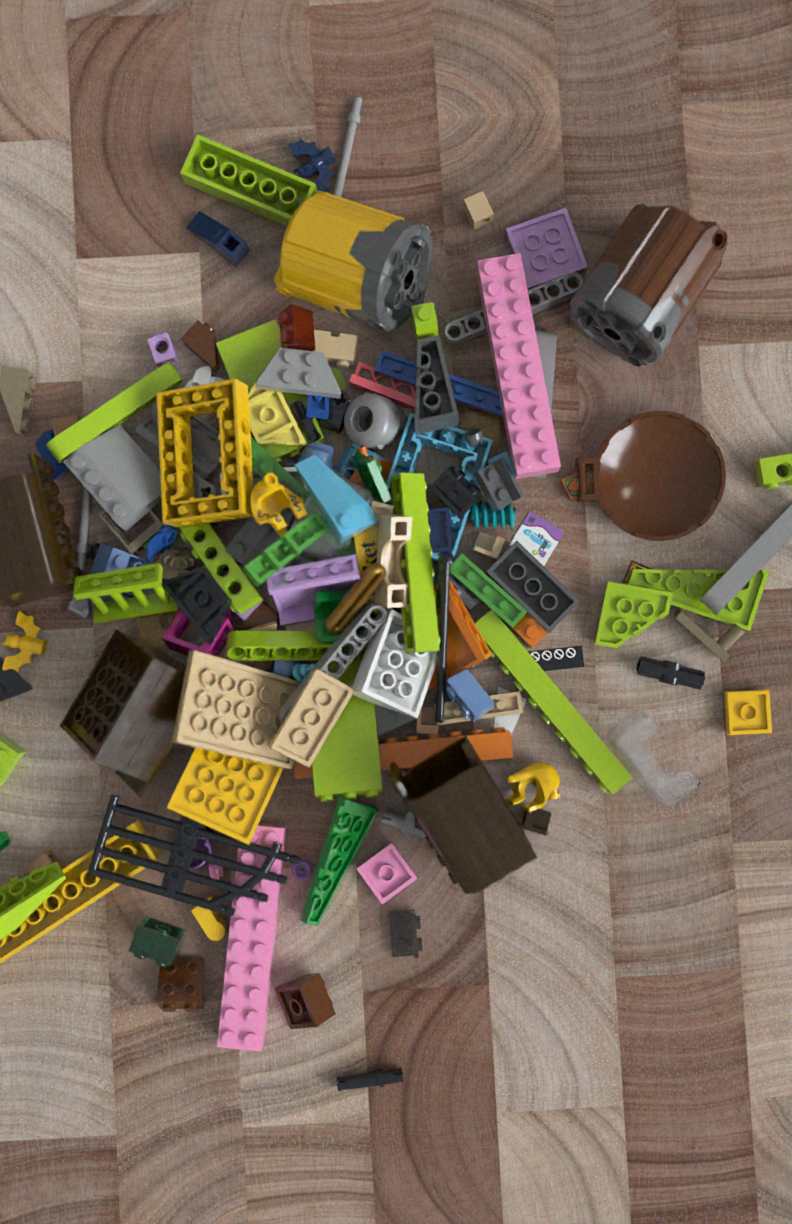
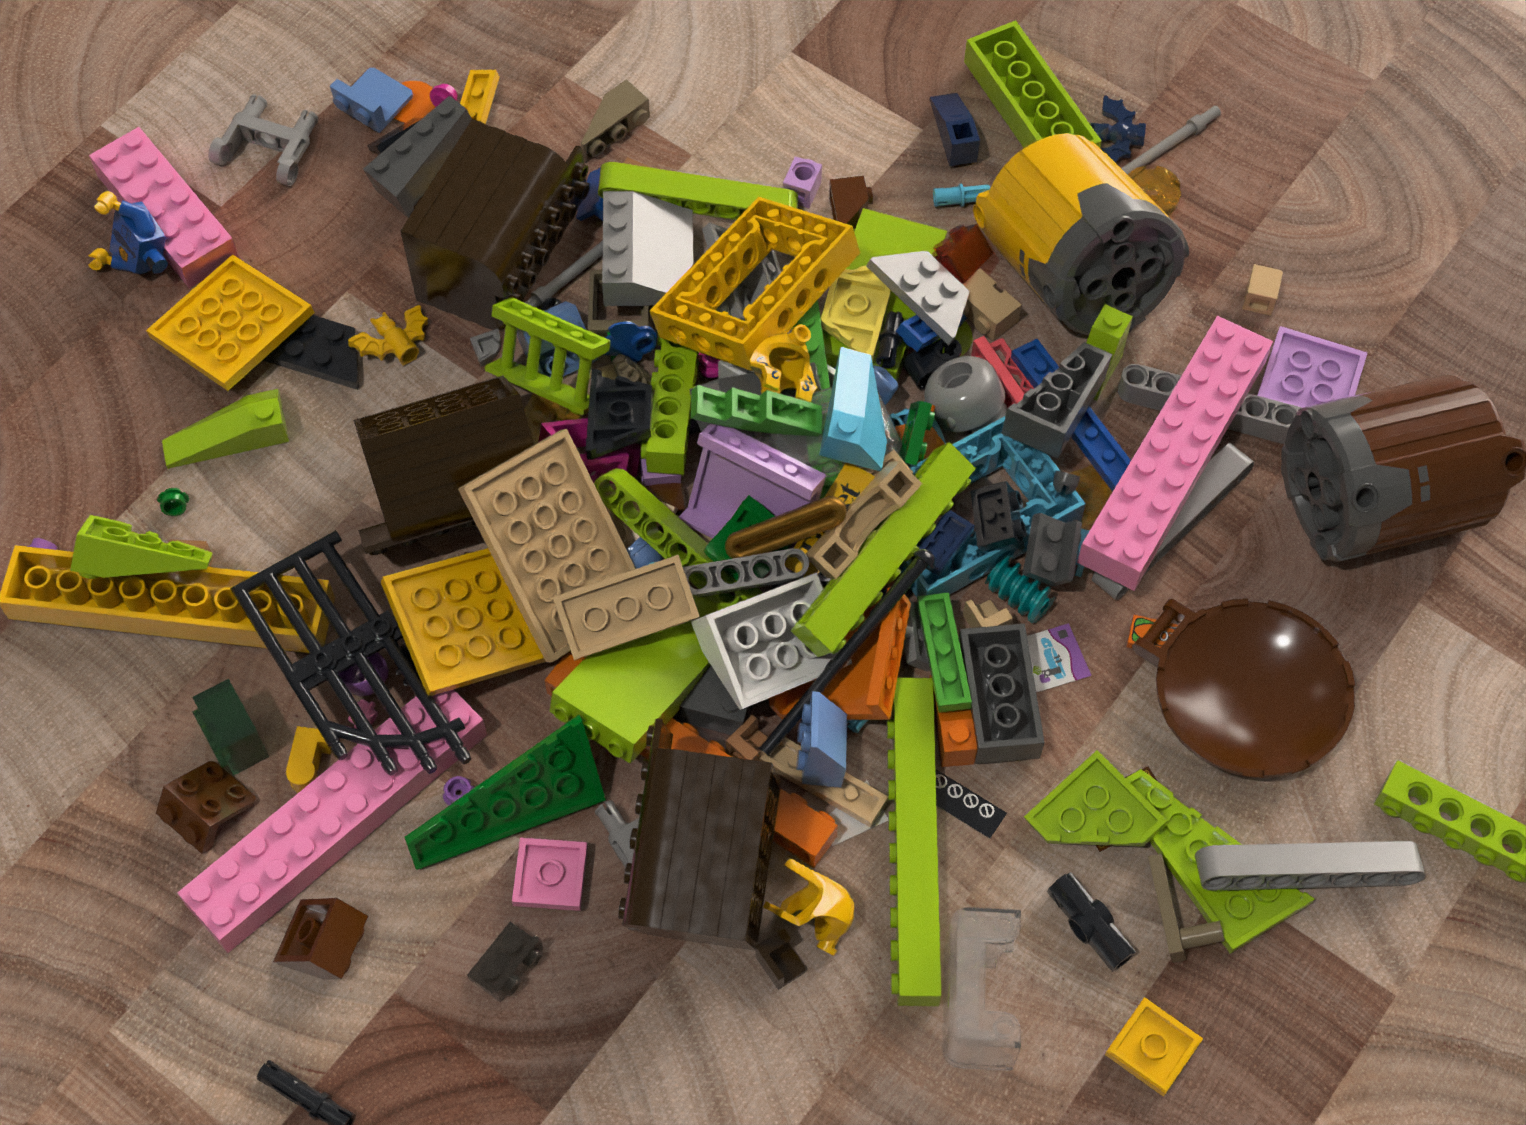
camera: 40 degrees right, 25 degrees down
(259, 282) = (957, 195): none -> medium azure axle
(370, 179) = (1163, 181): none -> clear yellow plate

